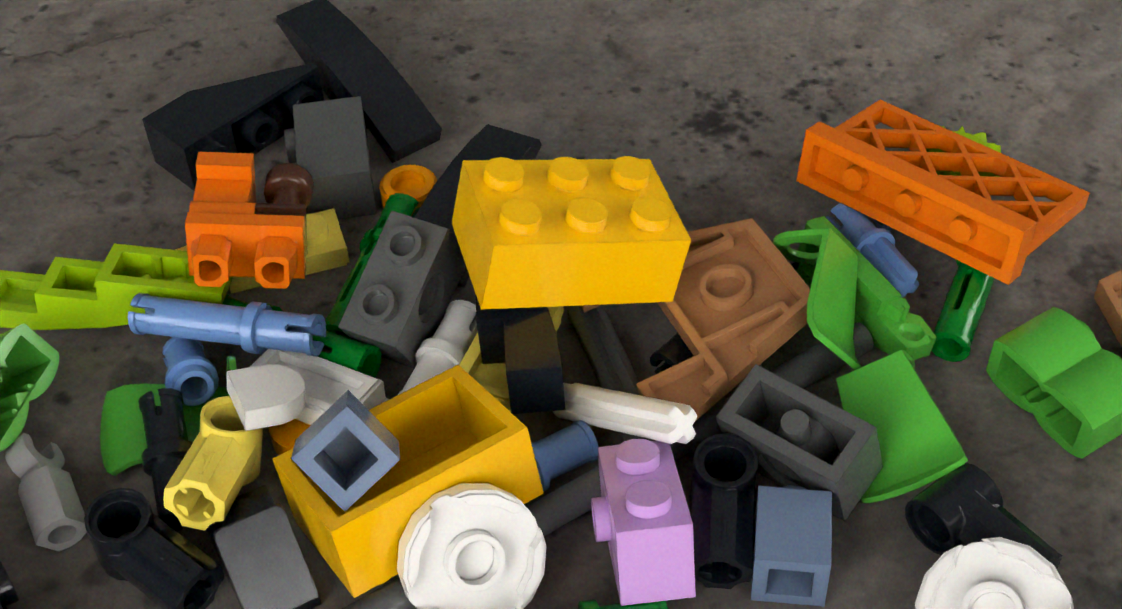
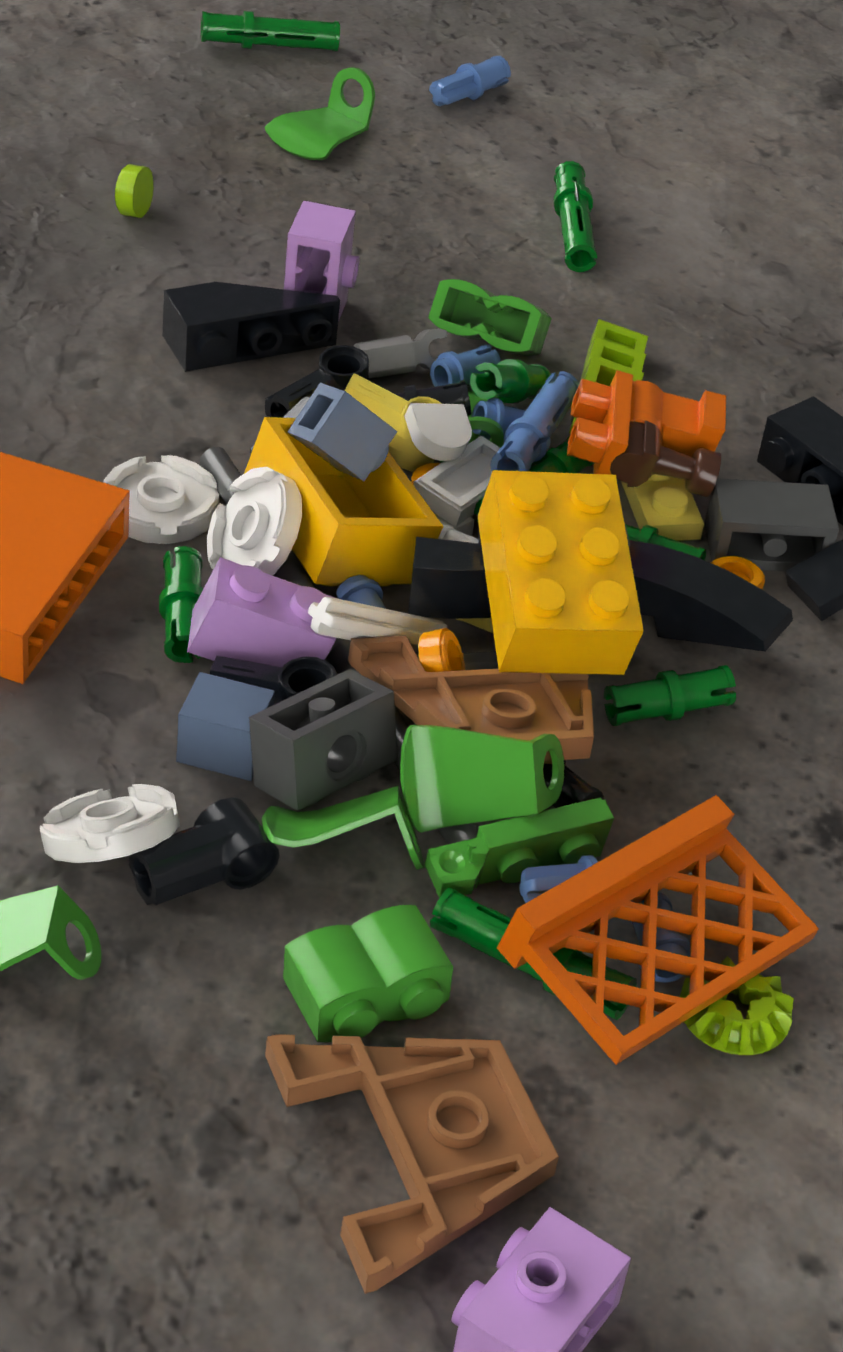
camera: 90 degrees right, 5 degrees down
(79, 433) = (455, 367): none -> medium blue pin
(123, 363) = (508, 380): none -> green pin
(652, 355) = (440, 651): none -> light orange tile

